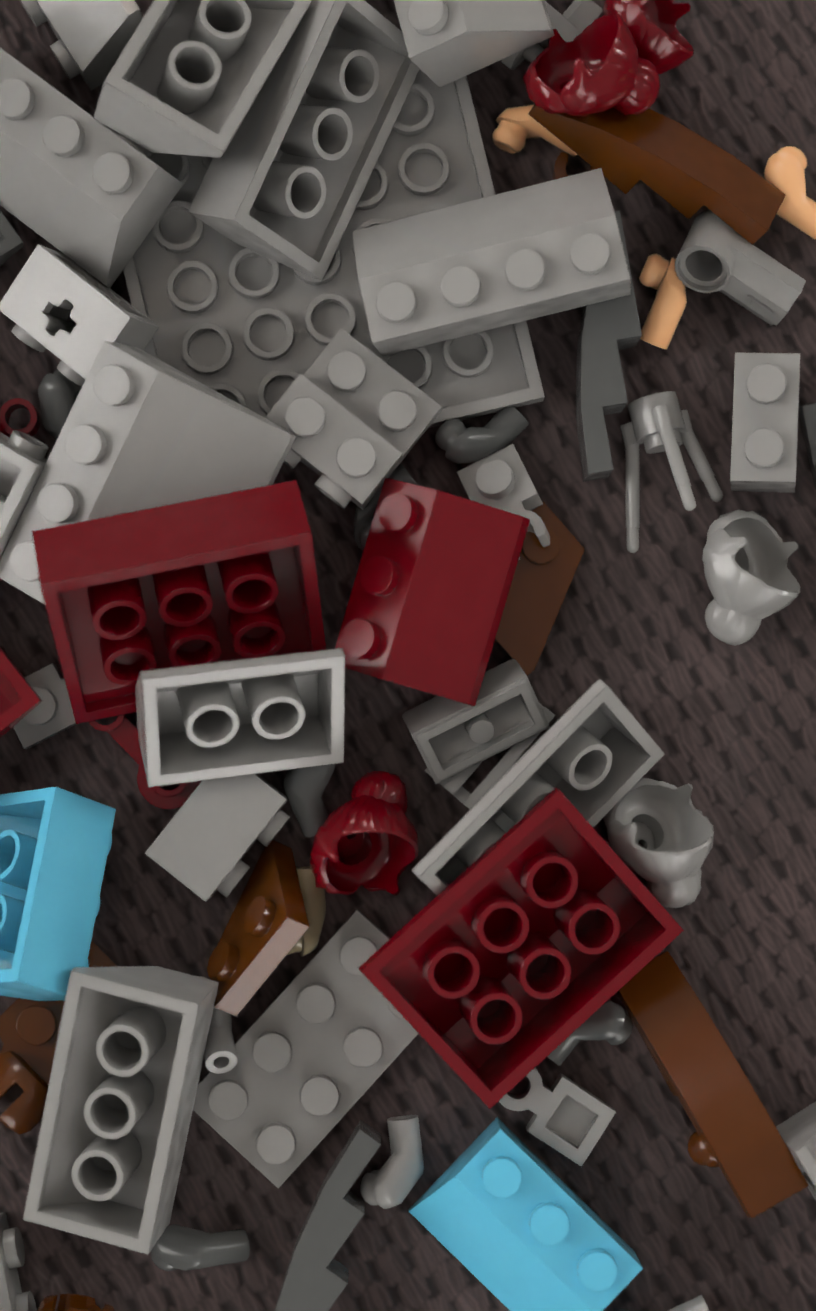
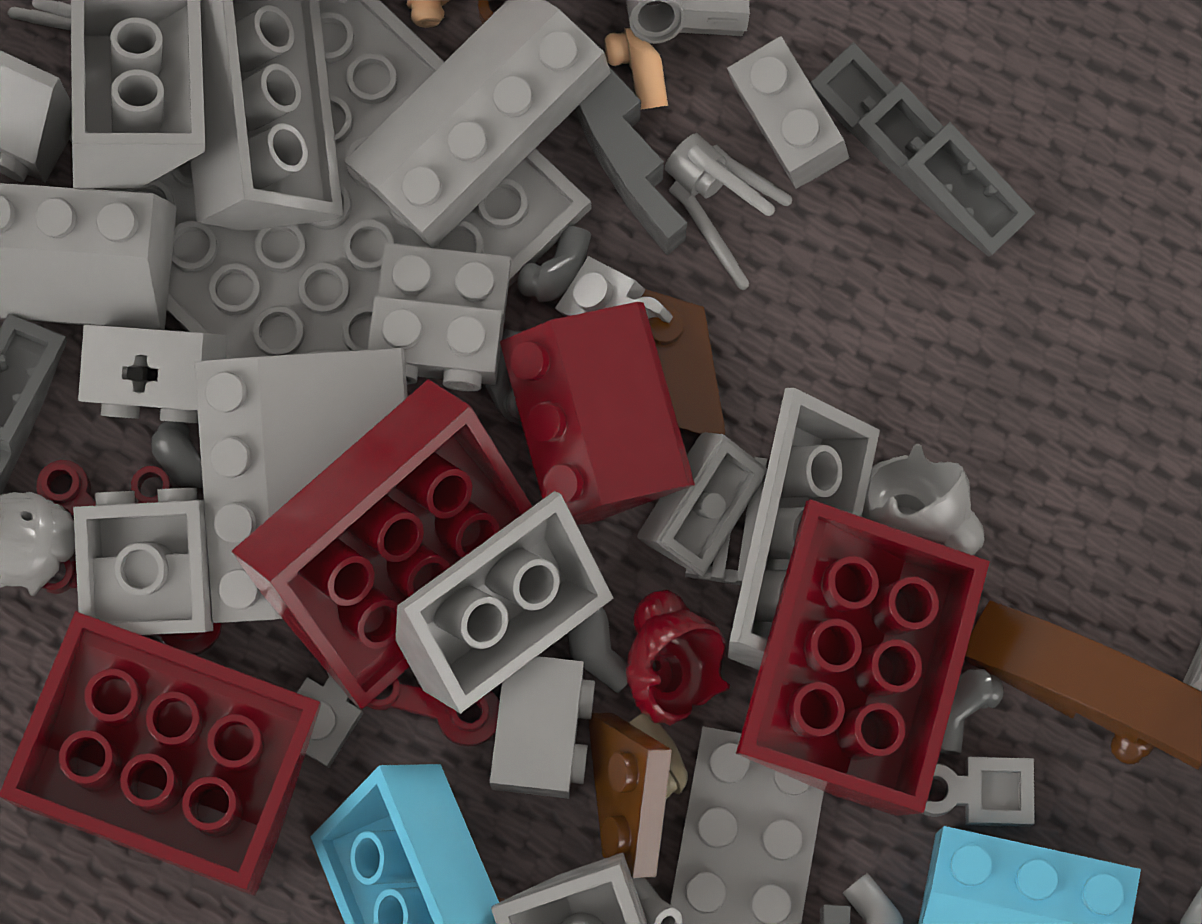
camera: 25 degrees left, 10 degrees down
(745, 575) = (852, 246): light grey piece -> none

